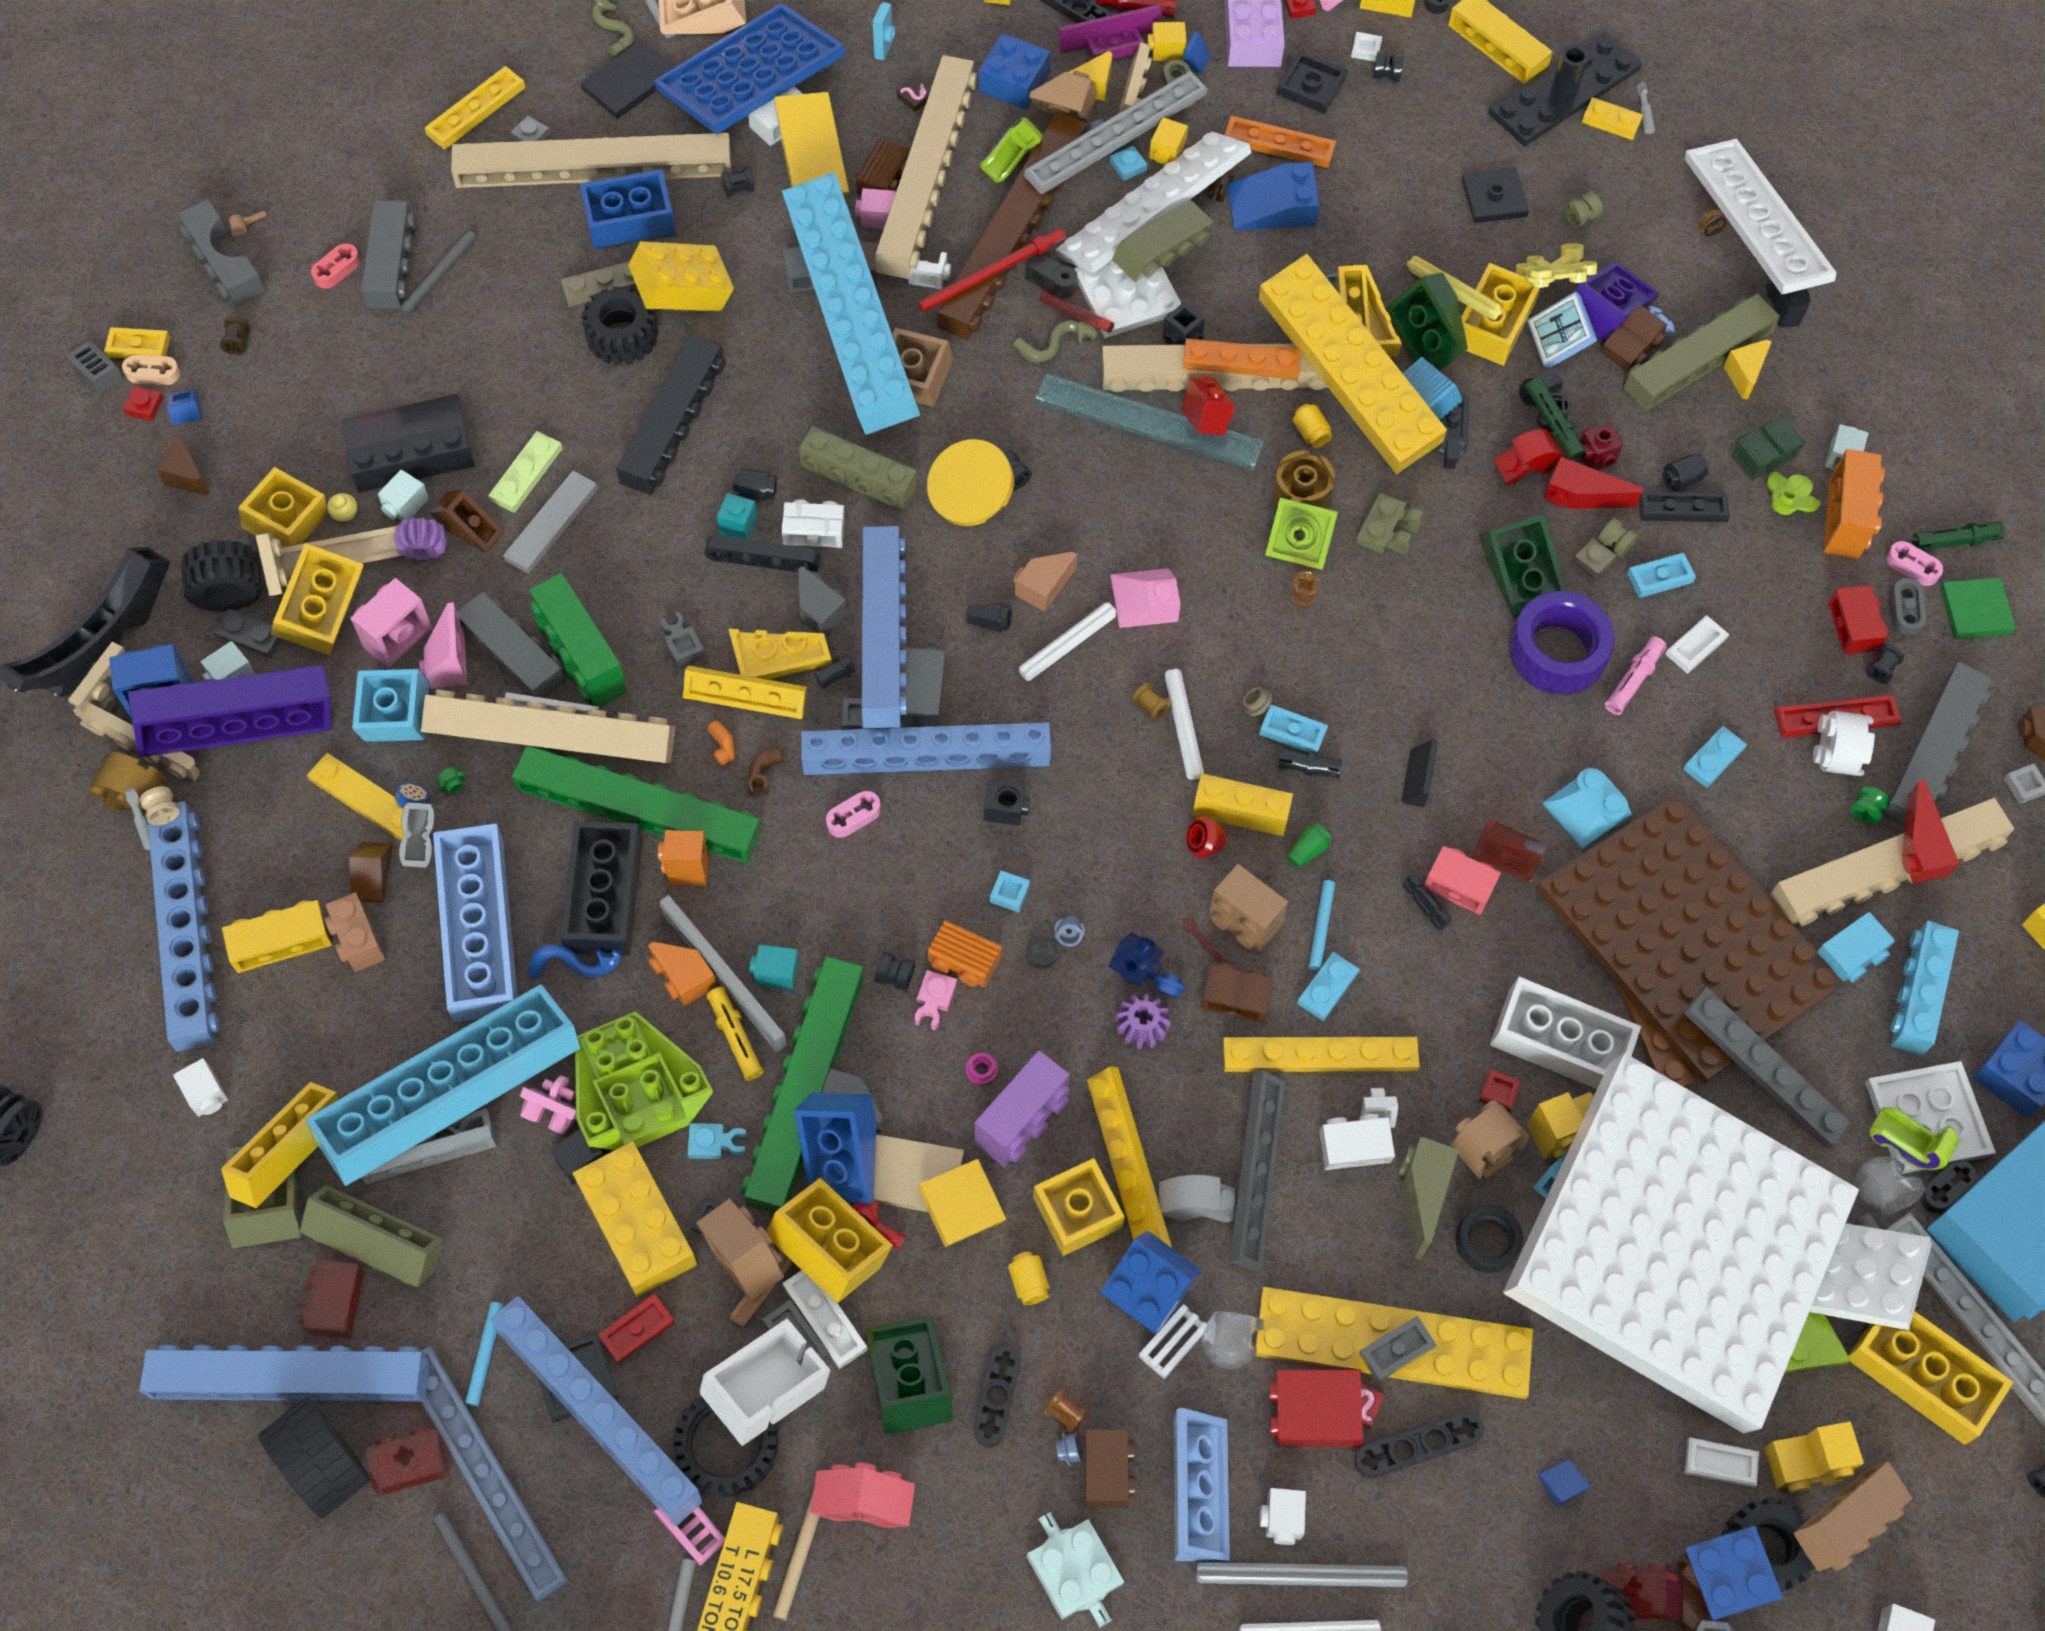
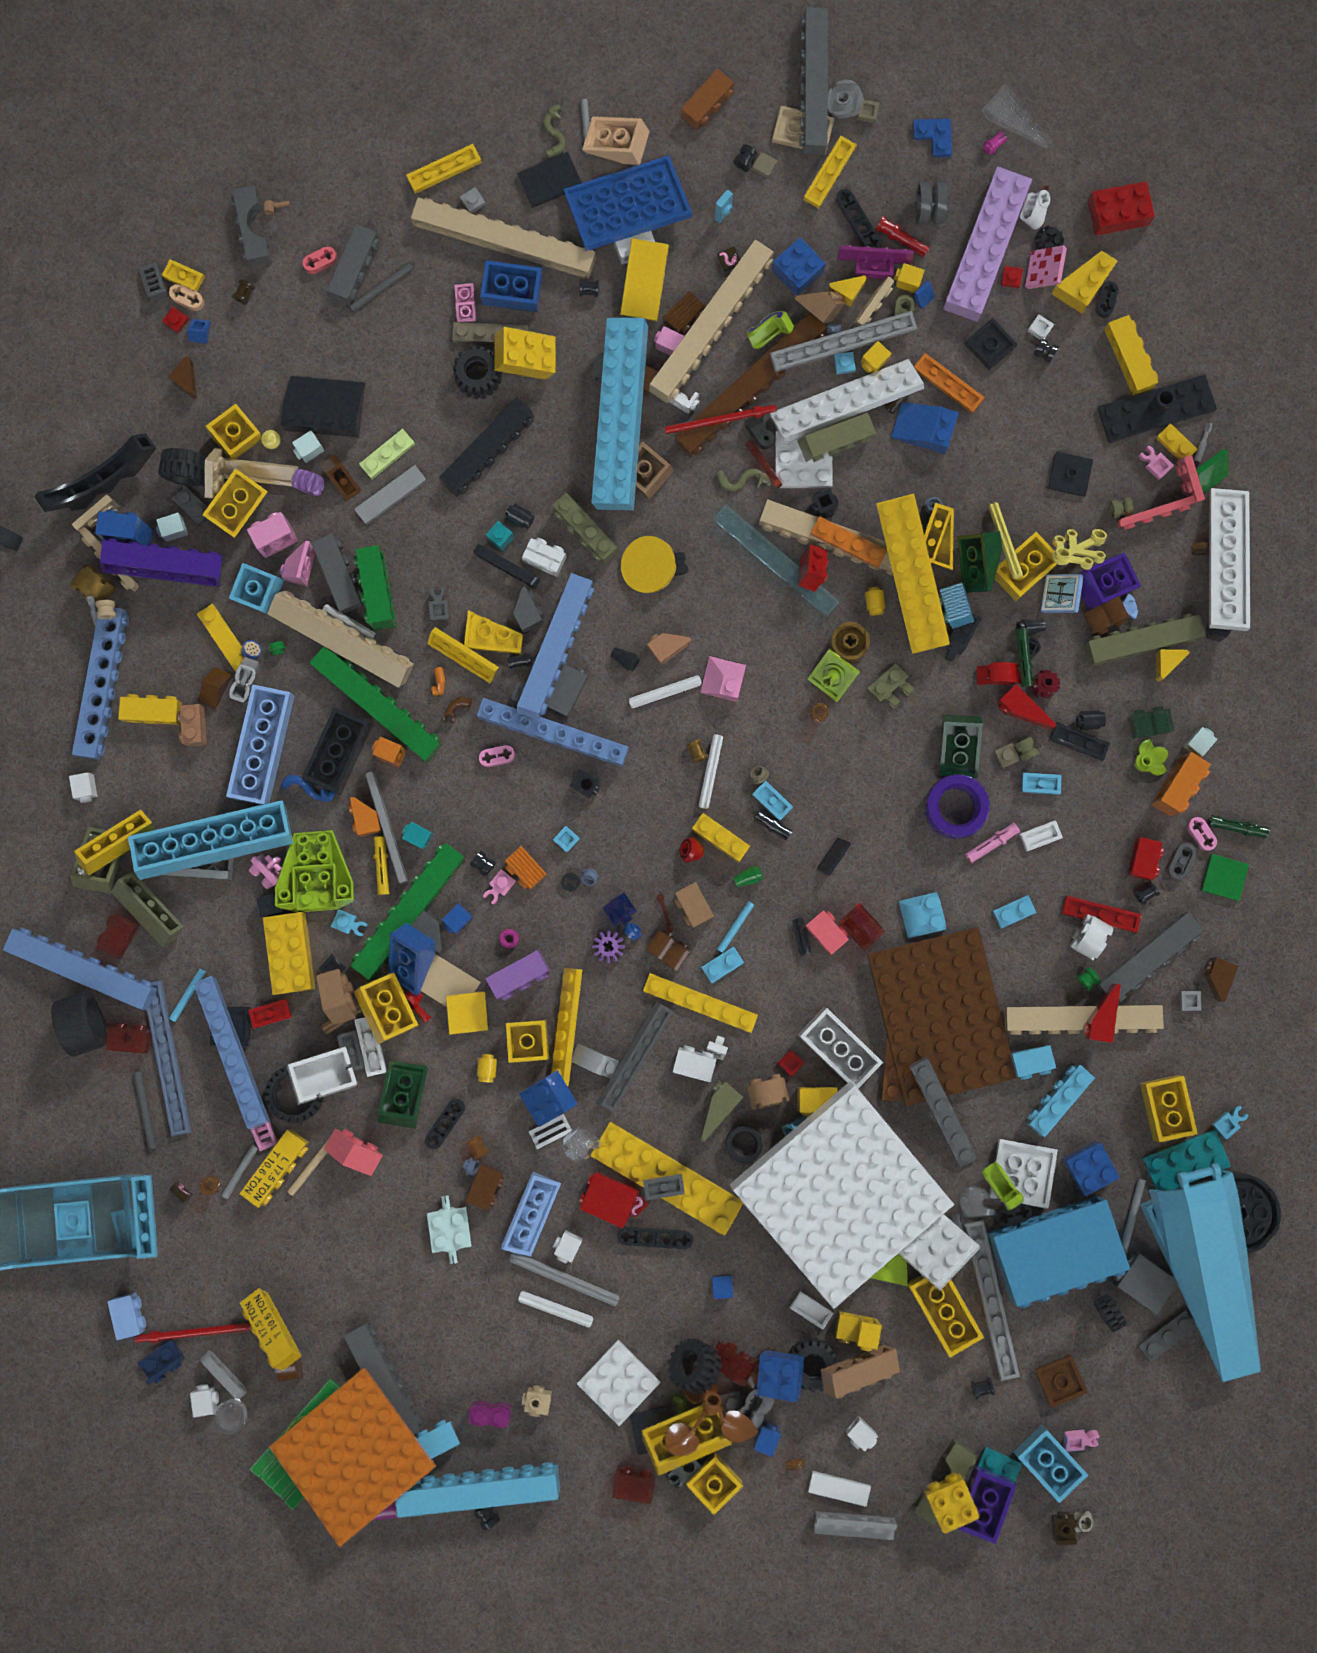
camera: 25 degrees right, 20 degrees up
(567, 252) = (465, 303): none -> bright pink slope
(888, 1067) = (456, 919): none -> blue brick
(1601, 148) = (1158, 465): none -> bright pink plate
(1662, 154) = (1191, 488): none -> coral bracket
(1678, 129) = (1213, 470): none -> green tile

